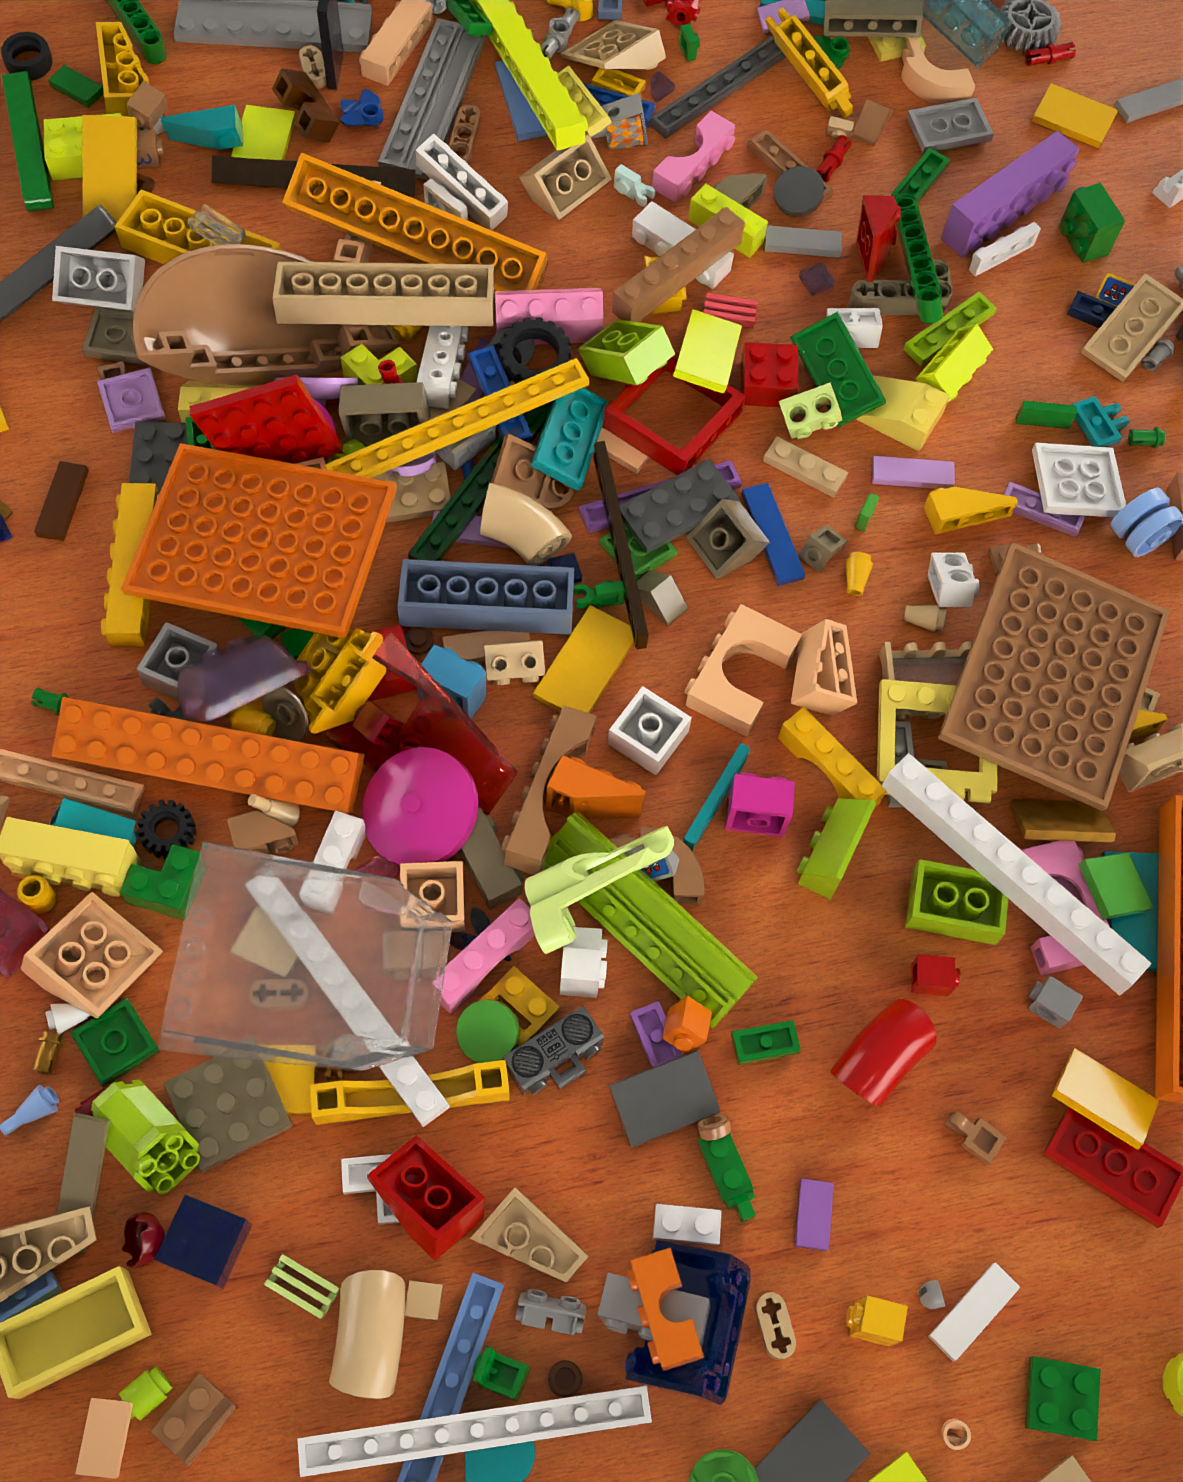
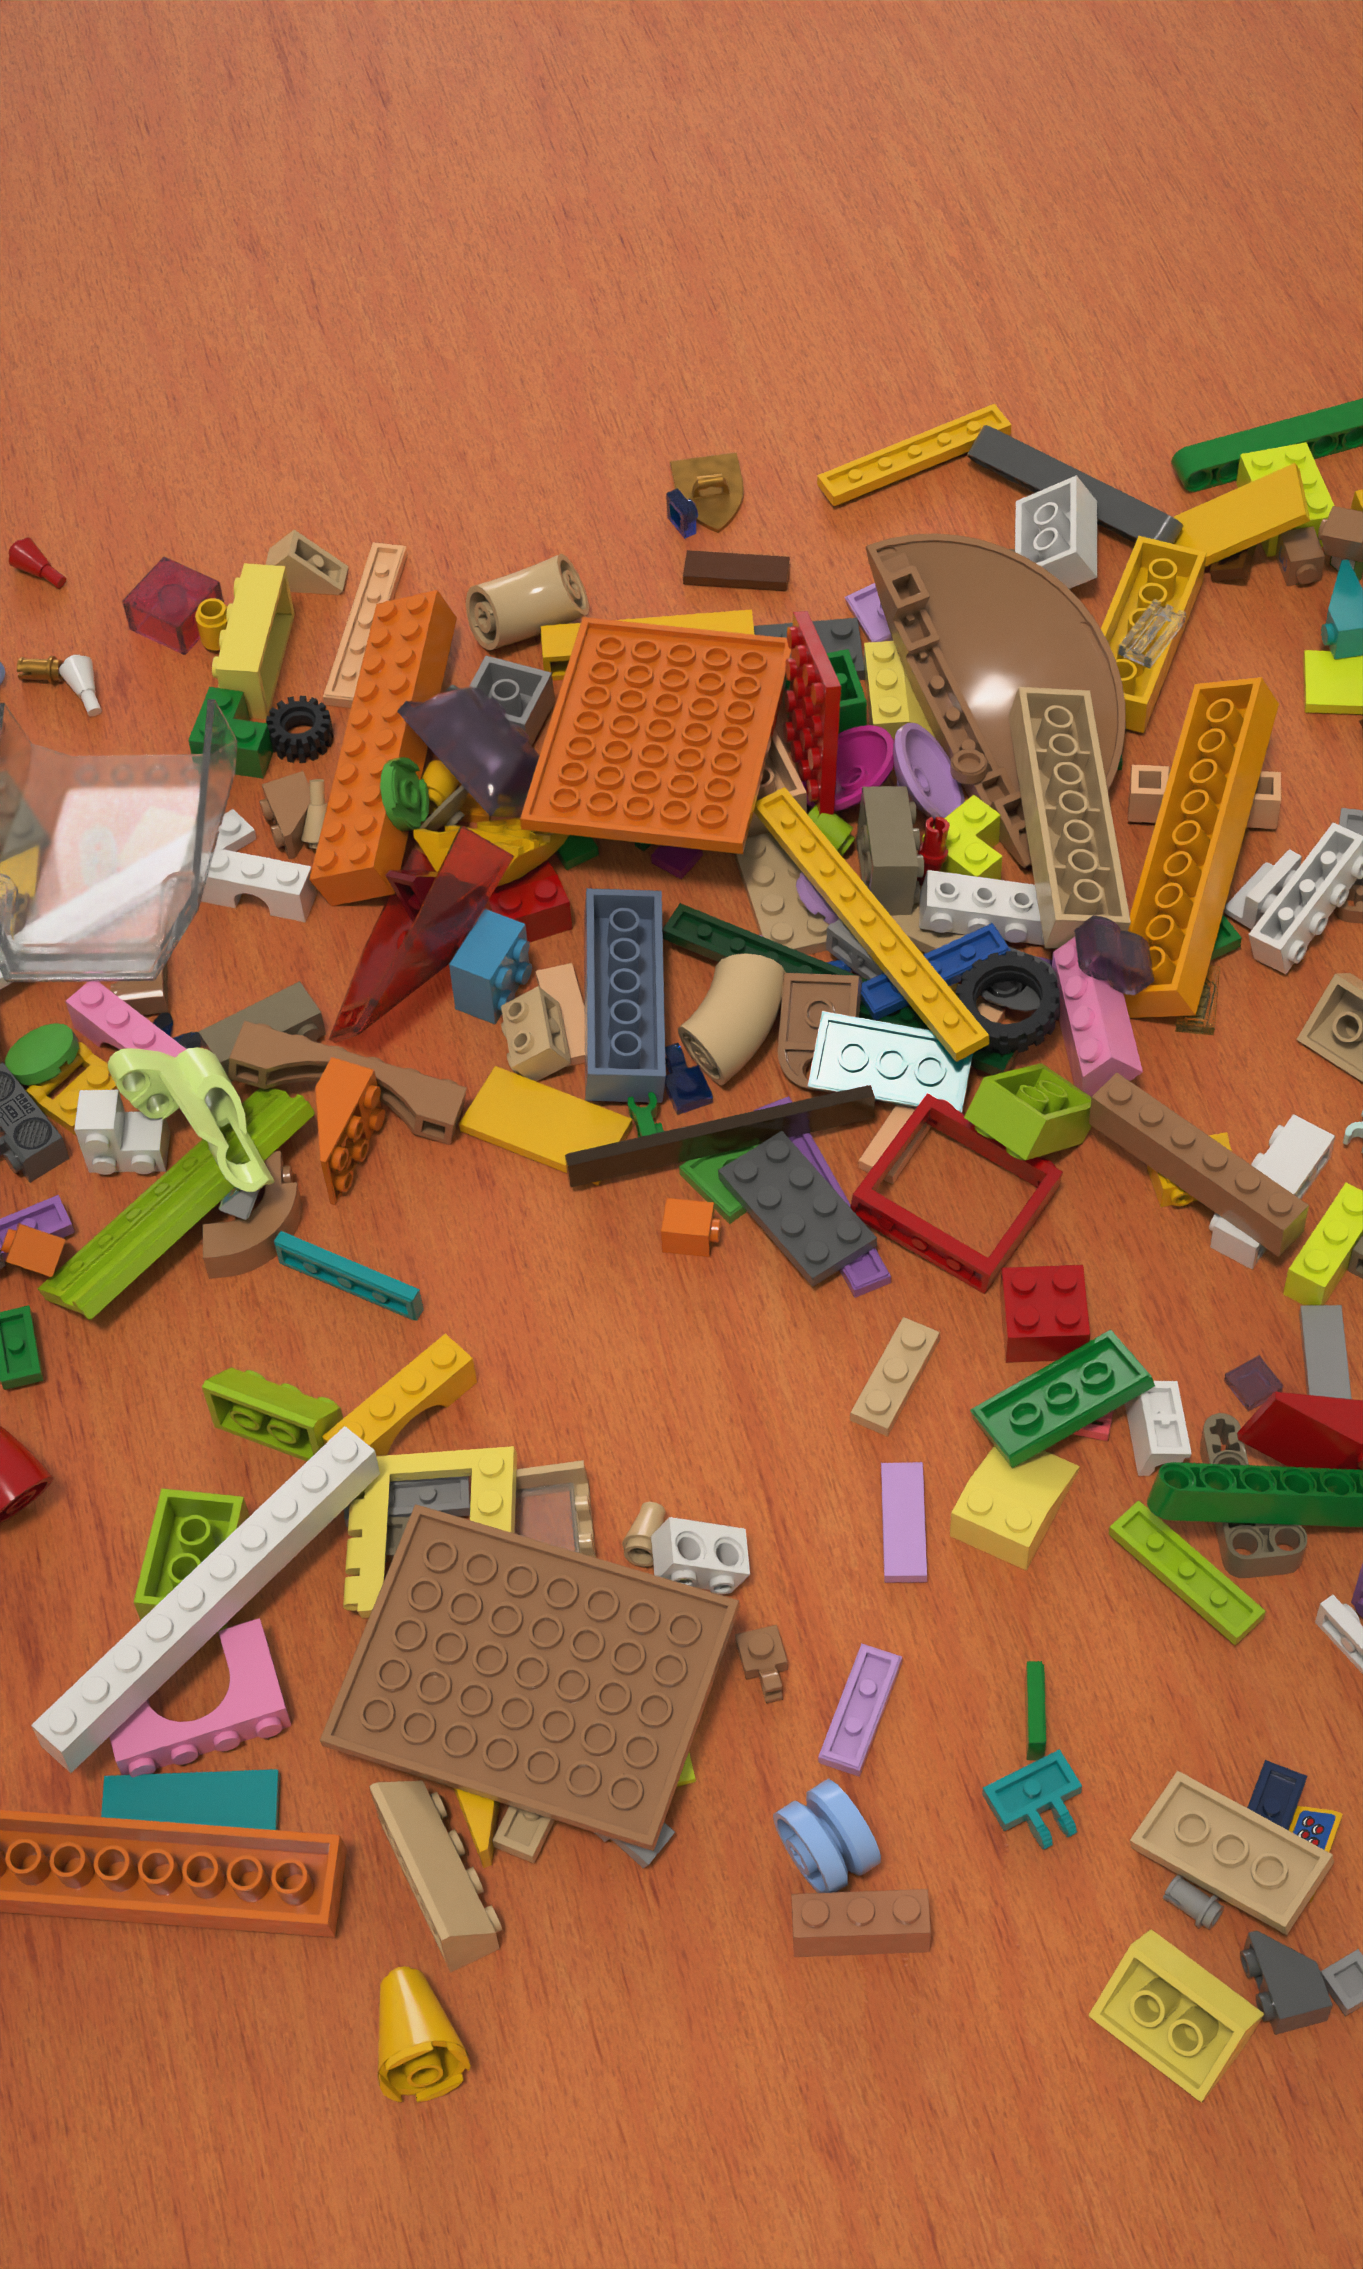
camera: 95 degrees right, 10 degrees down
(47, 700) = (458, 603): green pin -> none
(76, 646) = (523, 601): none -> tan brick
(90, 957) = (142, 683): light nougat slope -> none
(93, 820) = (293, 654): teal slope -> none
(115, 1042) = (58, 721): green tile -> none
(279, 173) = (1299, 738): dark brown tile -> none
(279, 731) = (404, 794): none -> bright green tile
(311, 358) = (968, 766): none -> medium nougat tile
(381, 867) = (256, 934): clear pink arm -> none
(419, 640) = (566, 940): reddish brown plate -> none
(420, 807) = (321, 953): dark pink dish -> none
(440, 886) = (206, 979): light nougat brick -> none
(517, 278) = (1114, 955): none -> brick
(649, 730) = (437, 1188): white brick -> none
(661, 596) = (646, 1198): dark tan slope -> none
(688, 572) = (689, 1227): none -> orange brick
(707, 351) = (1066, 1224): neon yellow tile -> none
(727, 538) = (754, 1275): dark tan slope -> none
(730, 306) = (1169, 1238): coral tile -> none
(744, 633) = (510, 1262): light nougat arch -> none
(760, 804) = (329, 1314): dark pink brick -> none
(780, 551) = (772, 1336): blue tile -> none
(808, 405) = (978, 1363): yellowish green brick -> none
(821, 547) = (754, 1396): dark tan bracket -> none
(824, 670) = (536, 1388): light nougat wedge -> none
(857, 572) = (713, 1442): yellow cone -> none
(867, 512) = (817, 1451): bright green tile -> none
(934, 975) = (96, 1538): red brick -> none
(957, 361) = (1104, 1569): neon yellow brick -> none
(964, 507) = (837, 1574): yellow slope -> none
(1054, 1001) = (48, 1682): light grey brick -> none
(1061, 821) = (305, 1692): pearl gold tile -> none
(1078, 480) = (910, 1752): white plate -> none
(1115, 885) = (212, 1764): bright green tile -> none
(1146, 437) = (1017, 1874): green pin -> none

